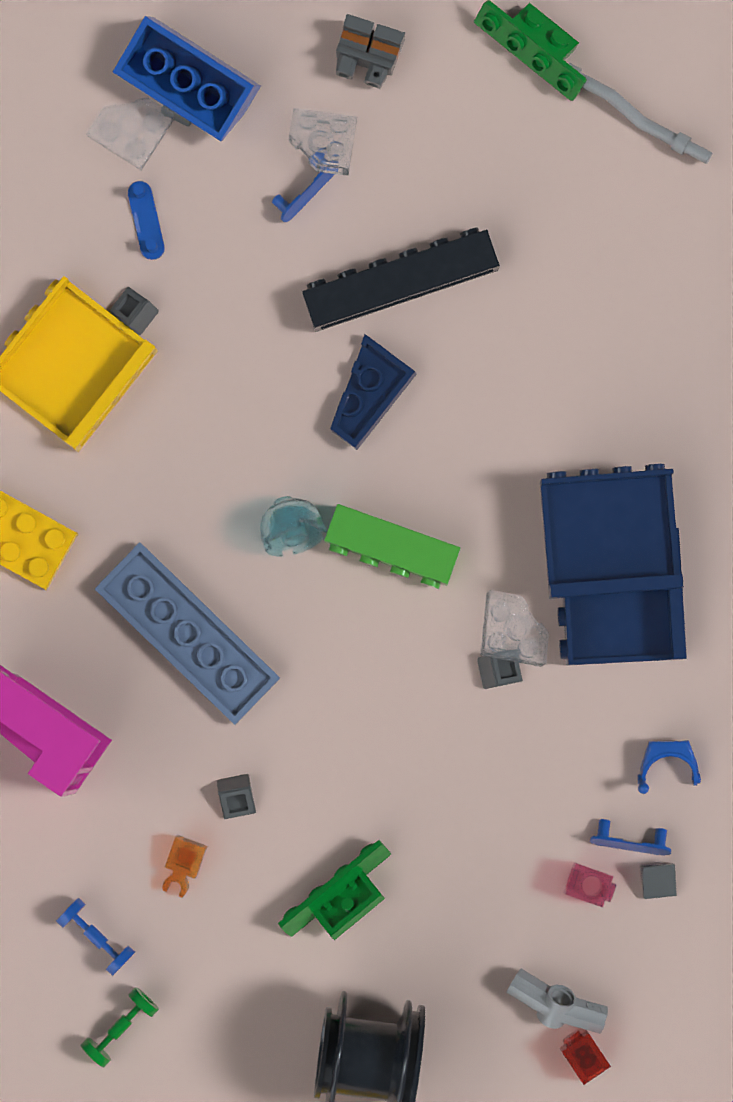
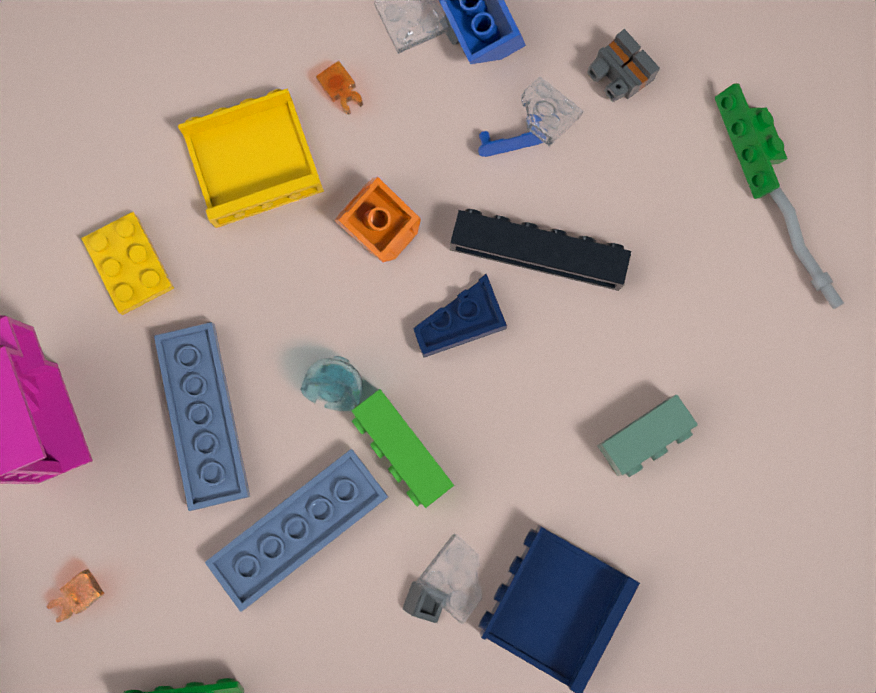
camera: 30 degrees right, 5 degrees down
(105, 238) = (338, 84): none -> clear orange plate
(134, 311) = (325, 151): dark grey slope -> none
(146, 220) = (378, 91): blue piece -> none
(231, 347) = (379, 220): none -> orange slope
(236, 796) = (154, 567): dark grey slope -> none
(343, 678) = (296, 530): none -> sand blue plate
(608, 392) = (648, 436): none -> sand green brick
(610, 532) = (582, 552): dark blue panel -> none

